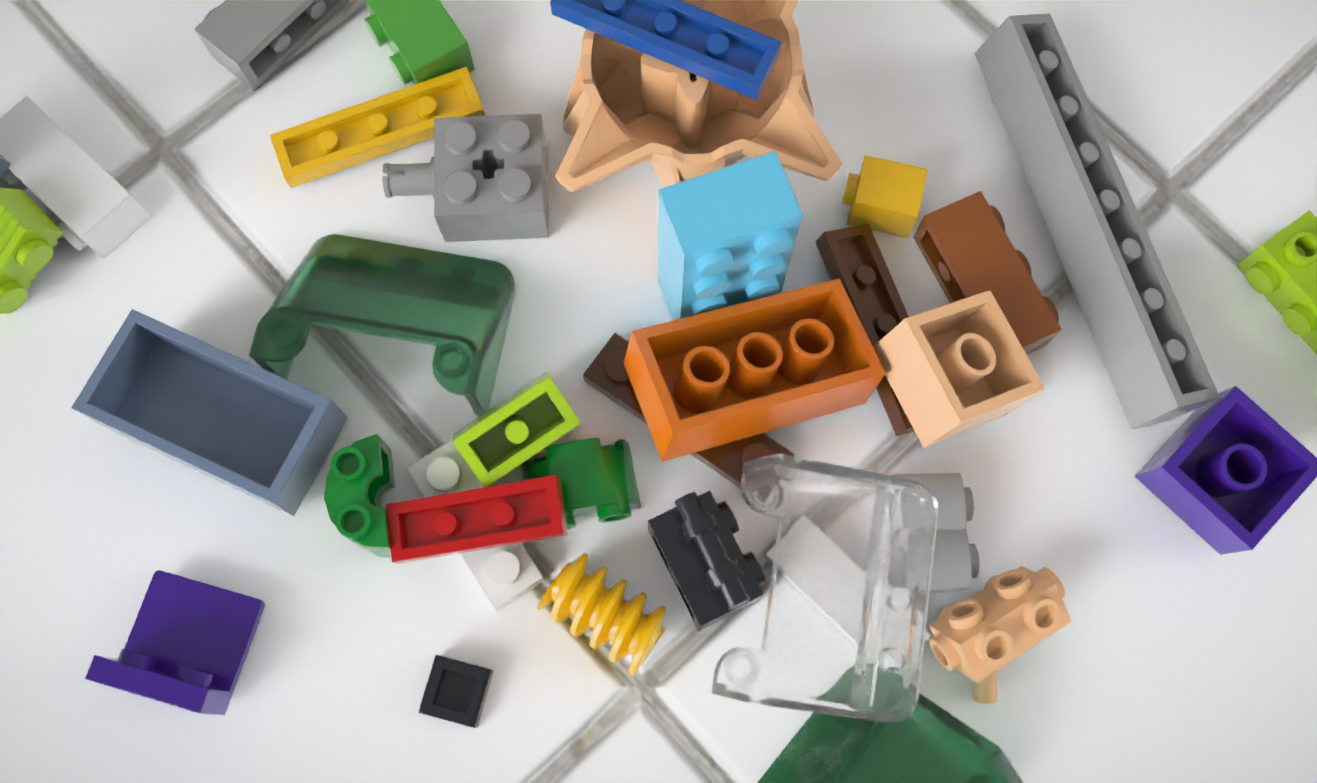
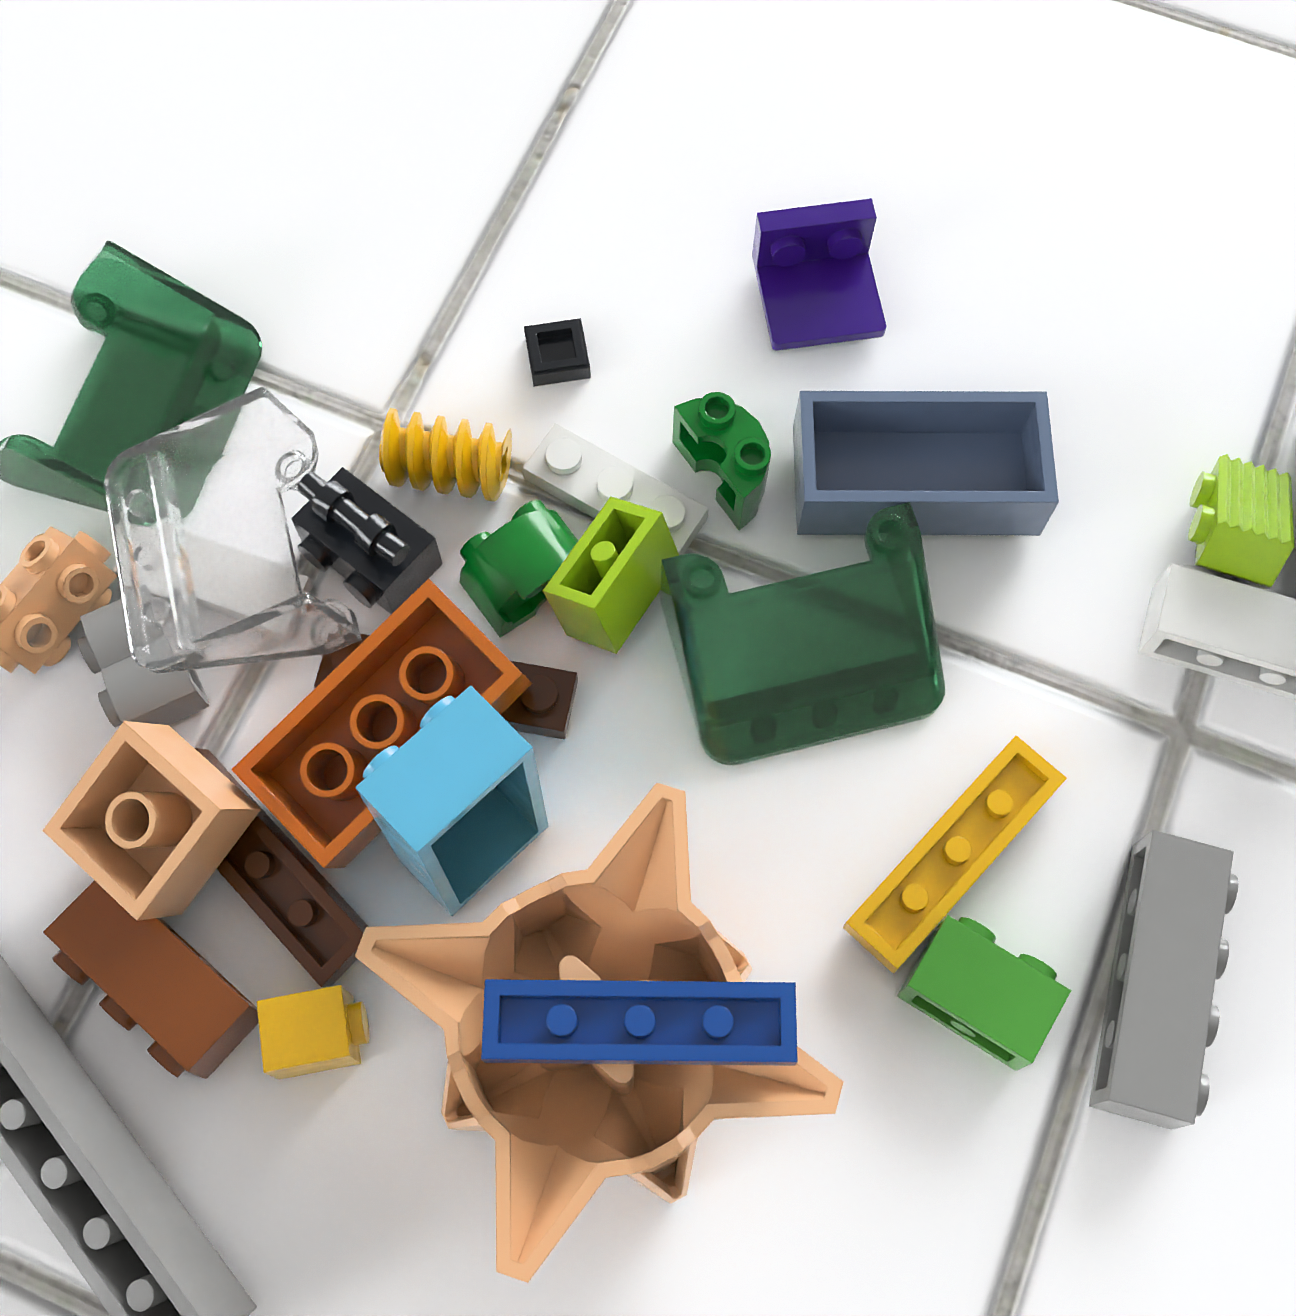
camera: 155 degrees right, 5 degrees down
(476, 519) = (602, 467): red plate -> none
(483, 178) = (803, 800): light grey brick -> none

